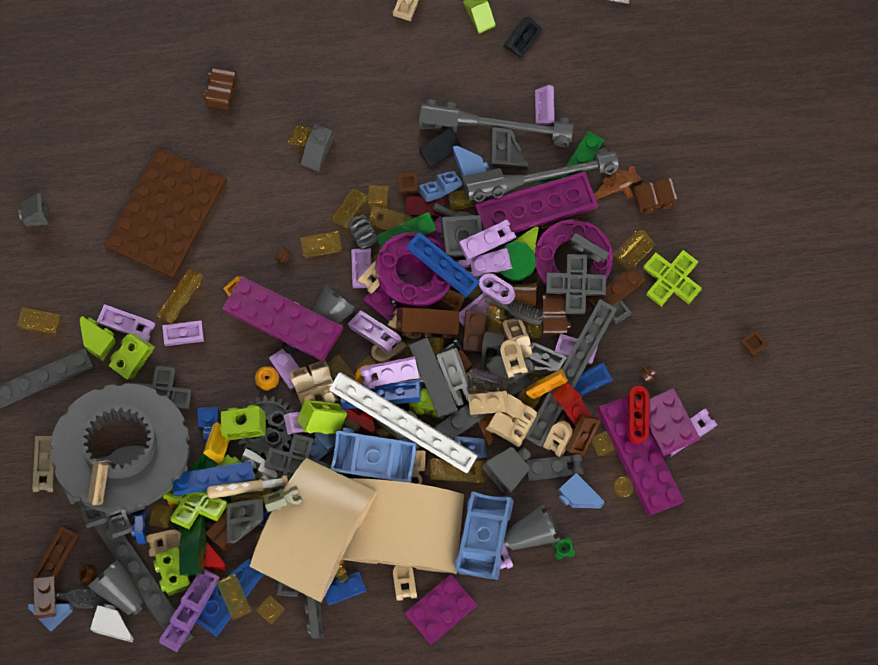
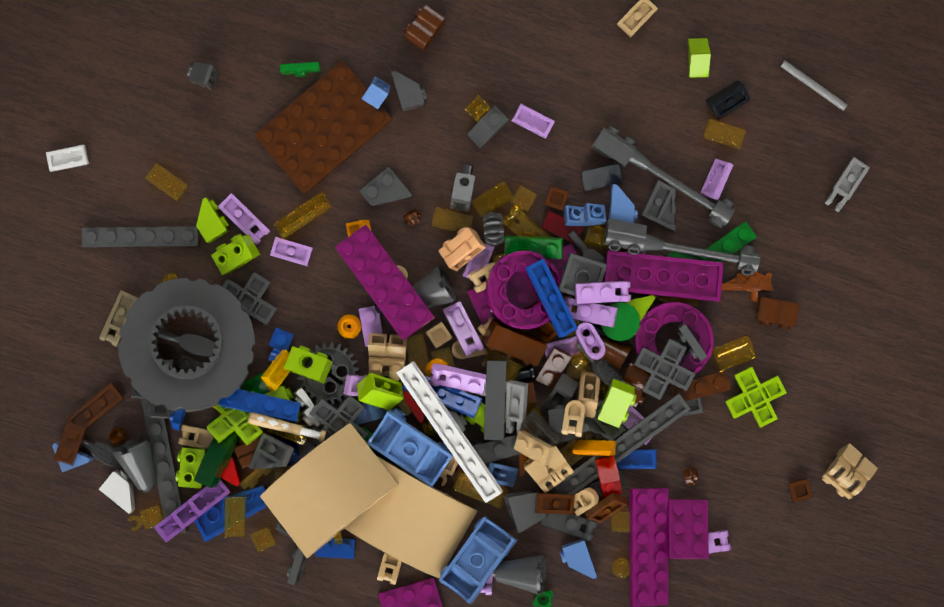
camera: 20 degrees right, 15 degrees up
(98, 483) = (149, 377): tan slope -> none
(122, 169) = (300, 69): none -> green plate
(150, 639) = (149, 518): none -> clear yellow plate
(160, 516) = (202, 416): clear yellow plate -> none
(201, 160) = (376, 92): none -> medium blue slope
(230, 148) = (408, 92): none -> dark grey slope
(235, 557) = (252, 479): none -> clear yellow plate
(246, 242) = (385, 189): none -> dark grey wing
(279, 499) = (307, 457): olive plate -> none
(319, 211) = (462, 195): none -> dark grey torso
(341, 260) = (461, 248): none -> light nougat brick
(354, 348) = (439, 335): none -> tan plate
(356, 126) = (533, 121): none -> lavender plate
(532, 449) = (554, 503): none -> reddish brown plate
(533, 66) = (724, 133): none -> clear yellow plate
(546, 332) = (616, 403): none -> brick
(641, 408) = (670, 508): red plate -> none
(662, 59) = (848, 182): none -> light grey hinge
(789, 307) = (849, 472): none -> tan hips

